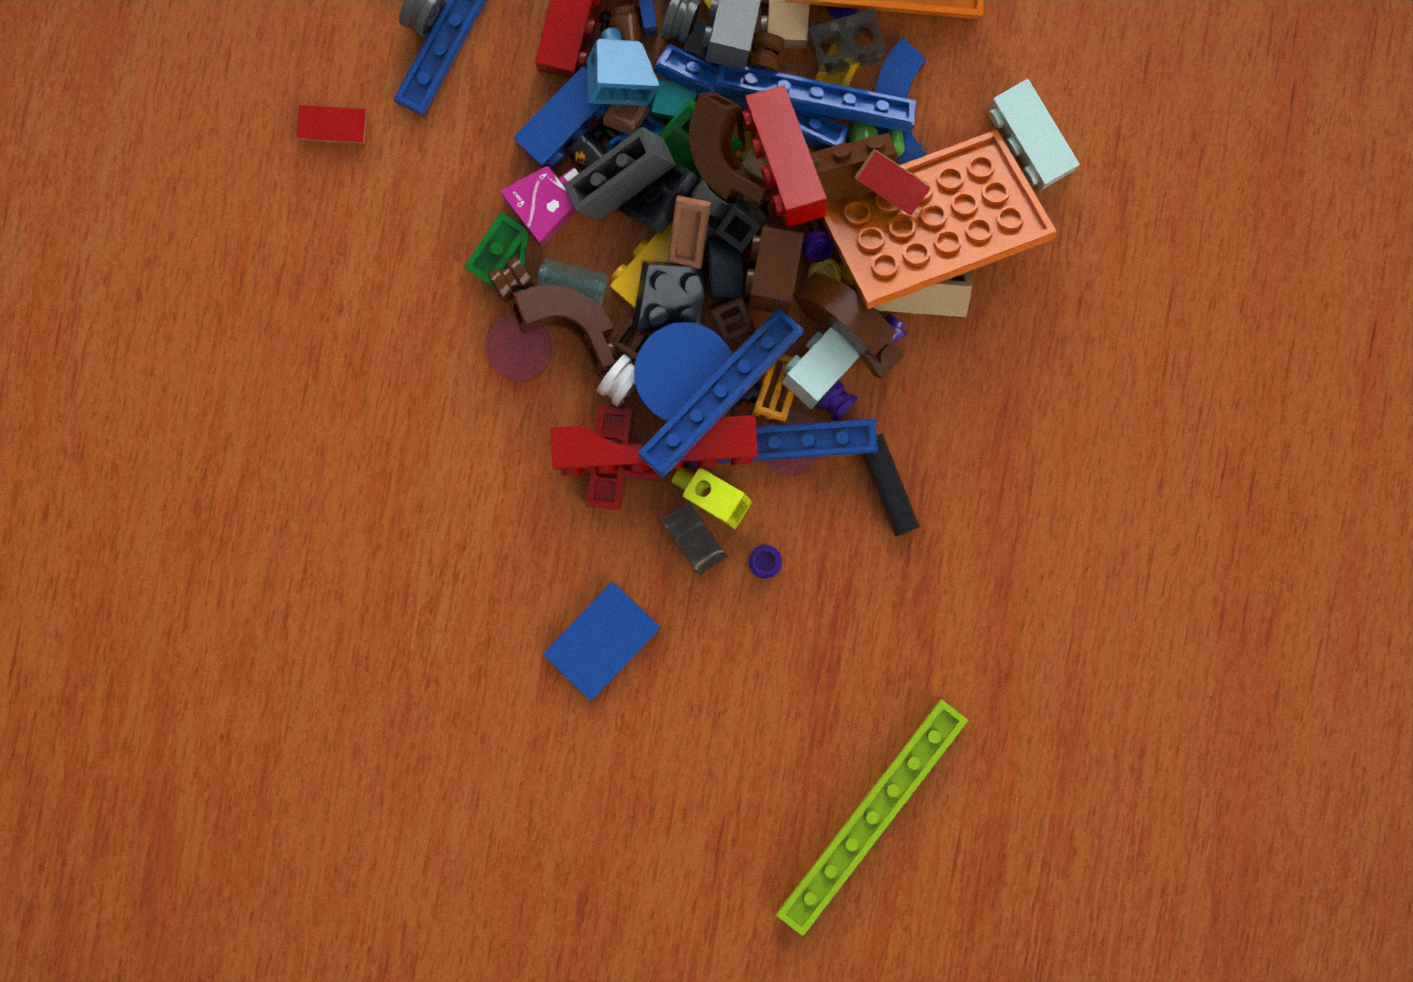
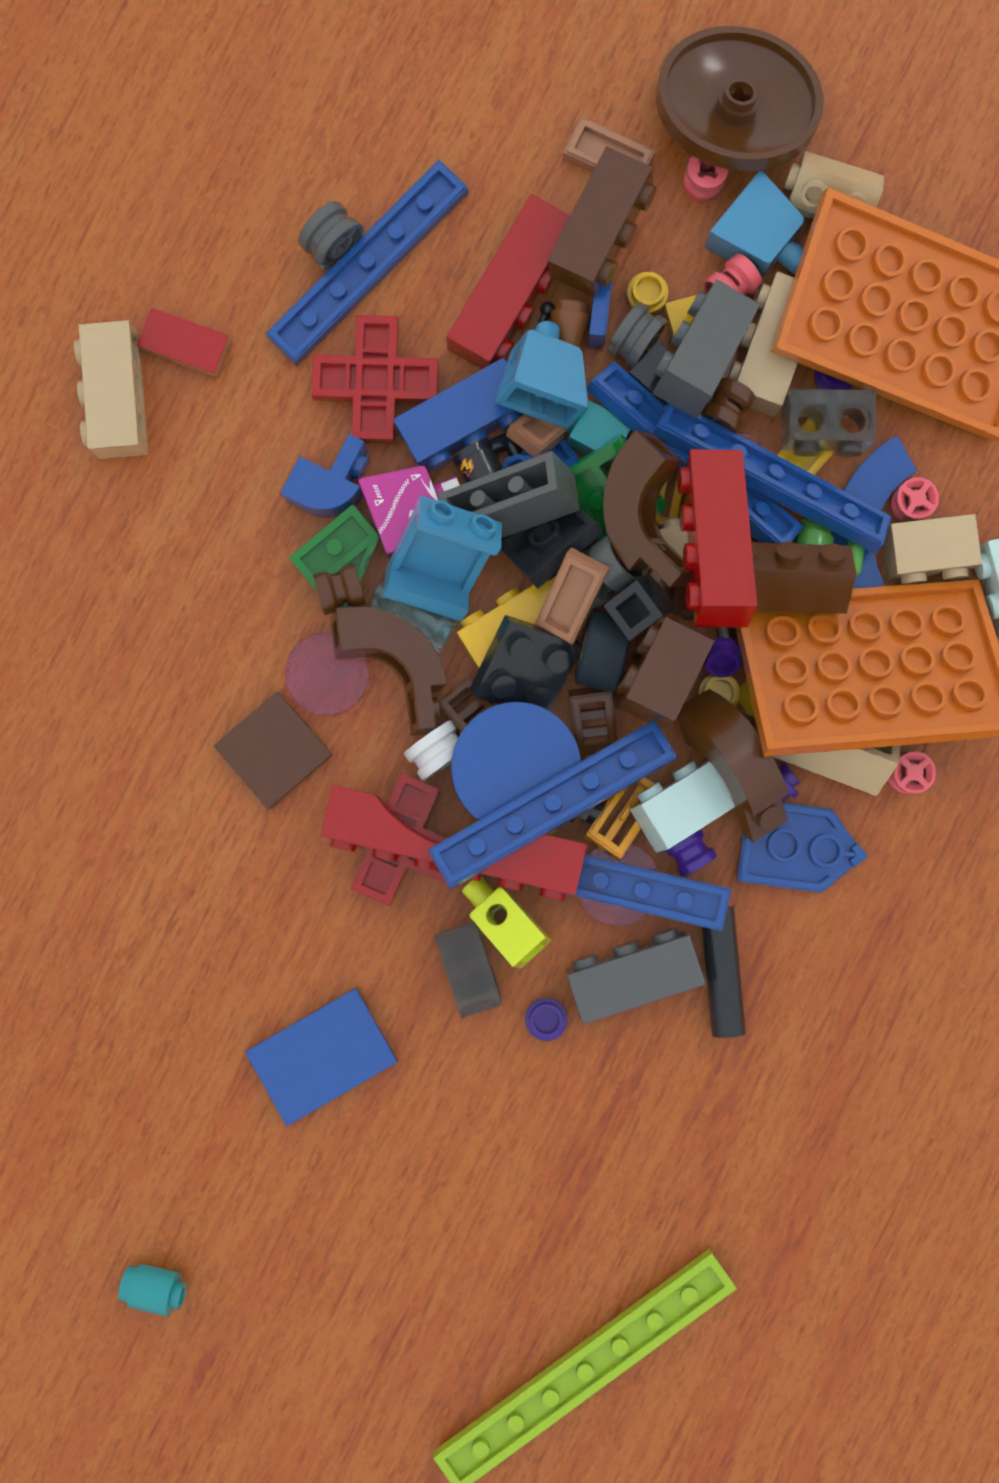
camera: 20 degrees right, 0 degrees up
(287, 178) = (111, 389): none -> tan brick
(480, 207) = (325, 491): none -> blue brick
(488, 110) = (374, 378): none -> red plate
(495, 418) = (273, 750): none -> reddish brown tile
(525, 854) = (152, 1289): none -> teal brick
(581, 232) = (440, 557): none -> dark azure panel
(821, 507) = (634, 975): none -> dark grey brick
(892, 182) = (840, 608): red tile -> none
(922, 377) = (801, 853): none -> blue tile
(933, 77) = (920, 494): none -> coral wheel
(953, 116) = (932, 548): none -> tan brick
(991, 287) = (919, 773): none -> coral wheel

